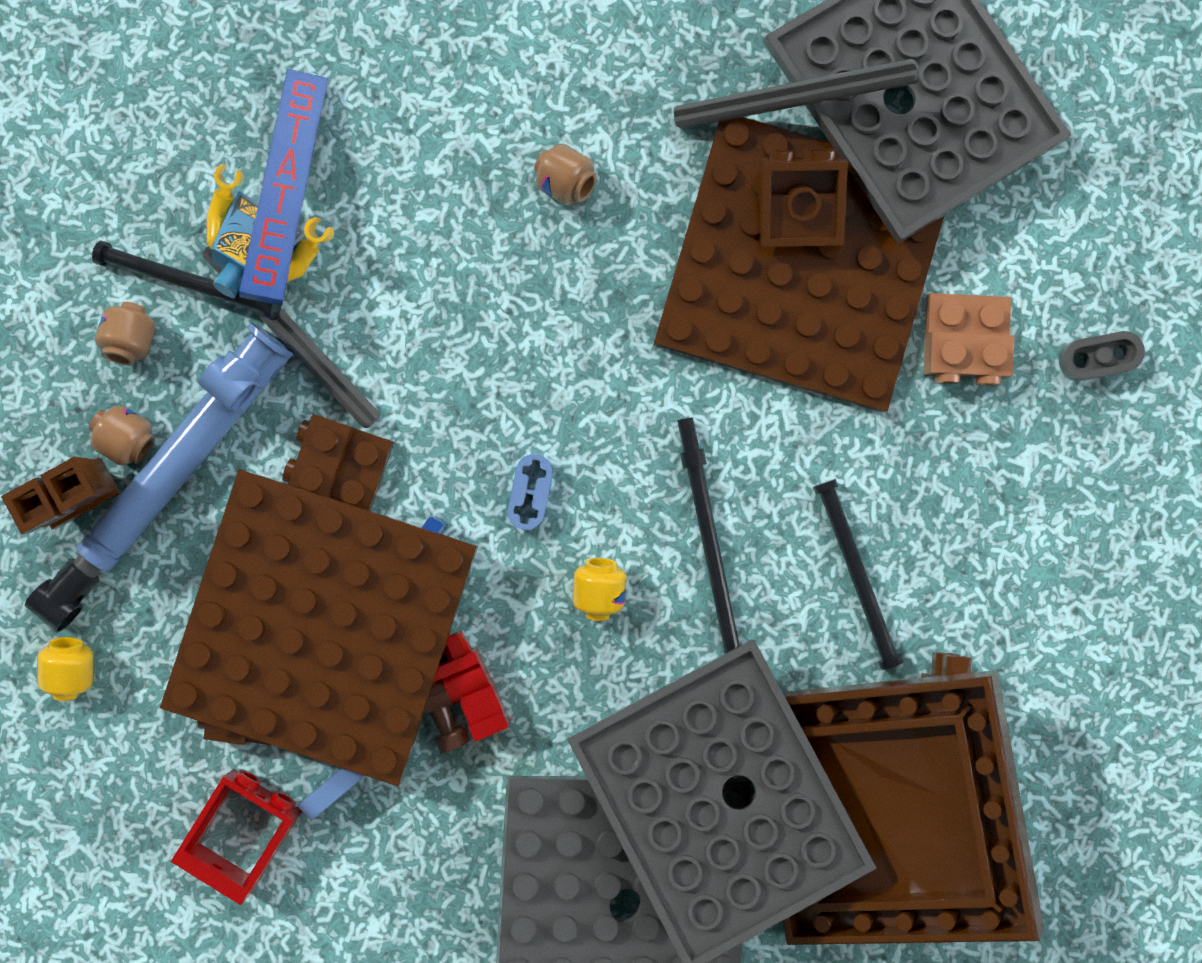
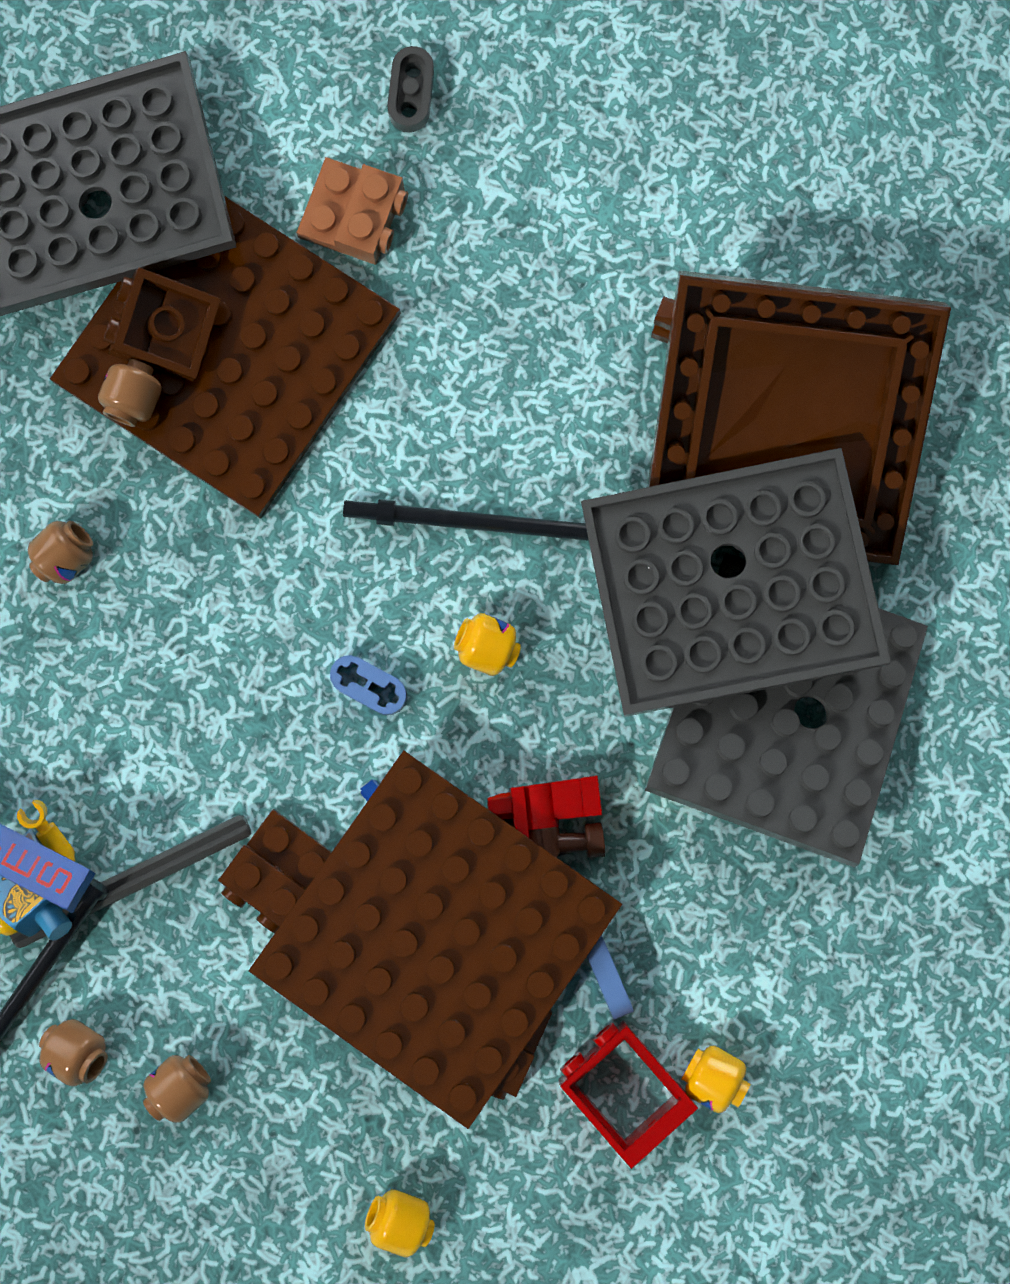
camera: 70 degrees left, 5 degrees down
(61, 494) = (218, 1164): reddish brown hips -> none
(231, 388) = (163, 955): medium blue piece -> none
(273, 911) = (716, 1079): none -> yellow head
(729, 191) = (129, 392): none -> medium nougat head
(797, 94) = (56, 299): dark grey axle -> none
(858, 574) = (552, 385): black bar -> none

